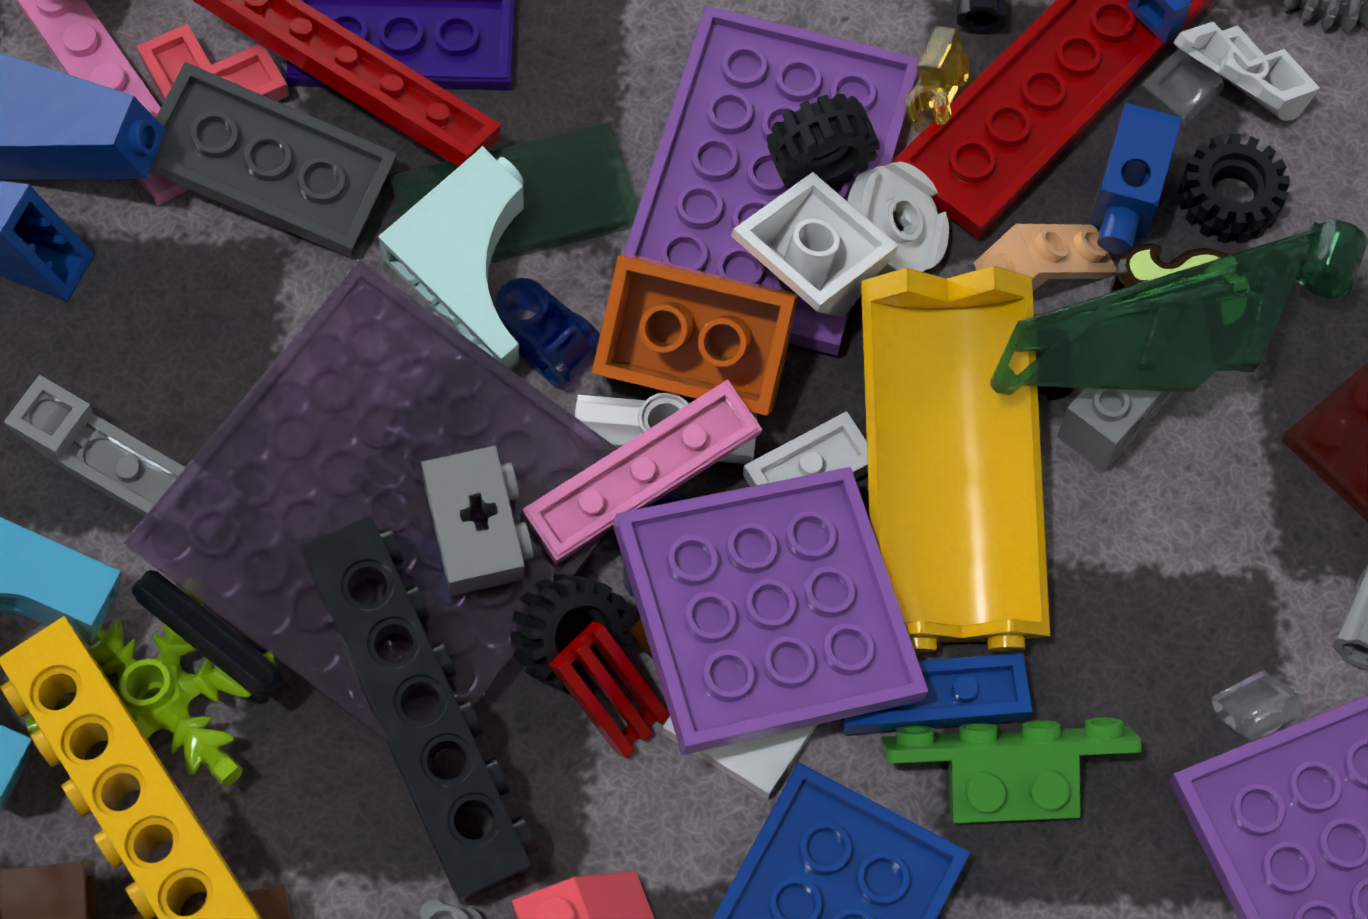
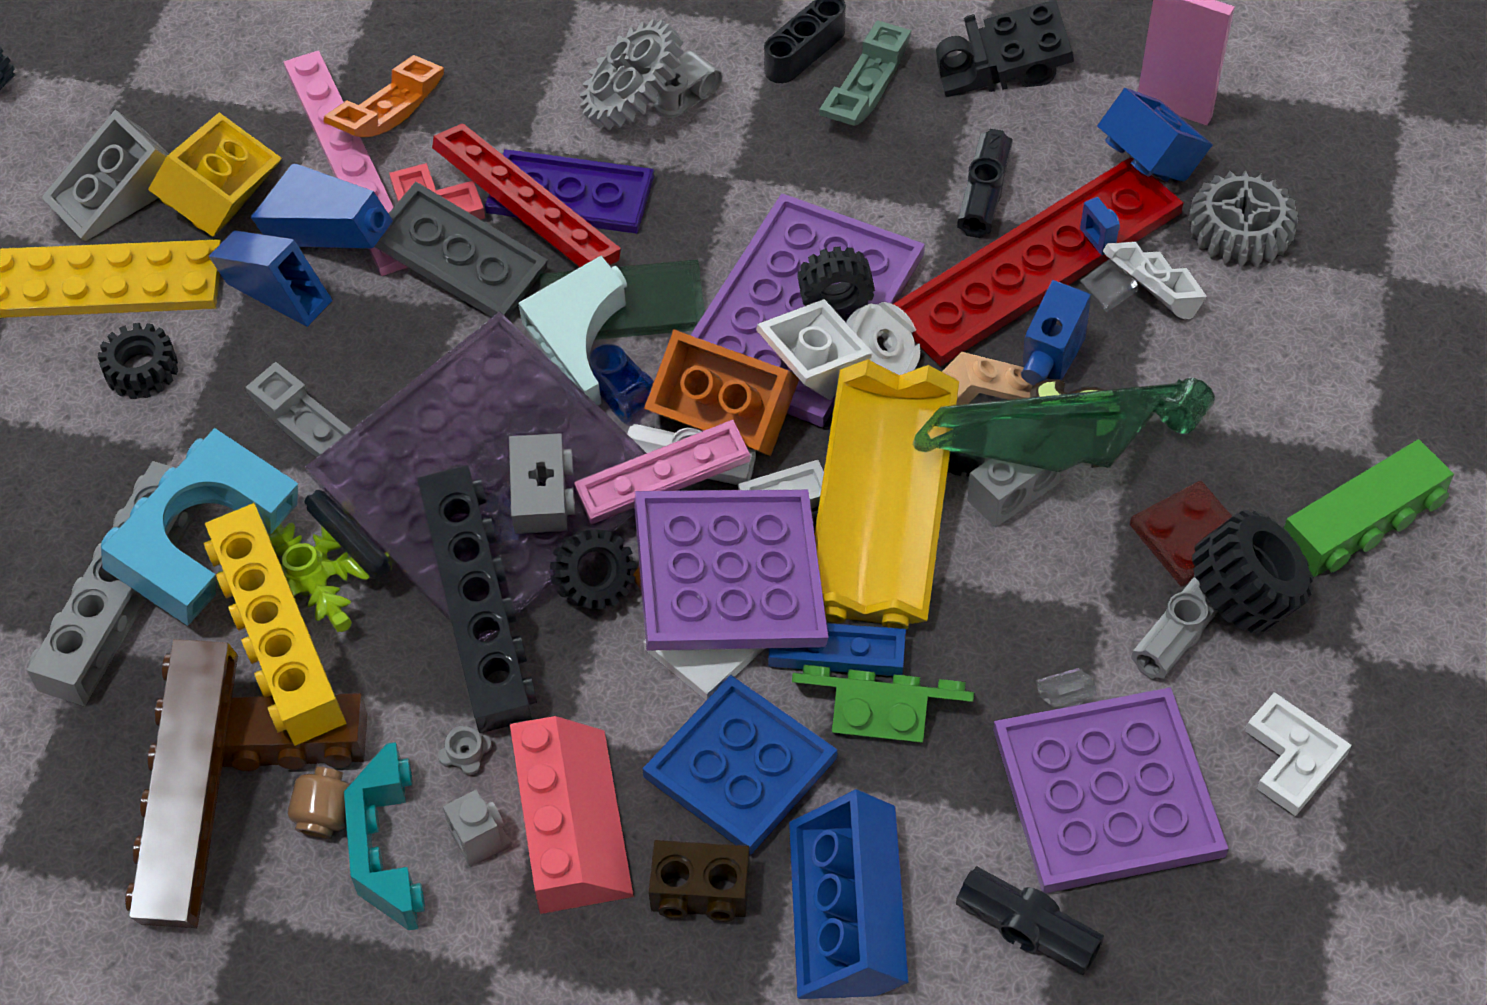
camera: 15 degrees right, 10 degrees down
(637, 722) = (628, 639): red tile -> none
(941, 72) = (937, 254): clear yellow plate -> none
(1243, 162) = (1134, 337): black tyre -> none

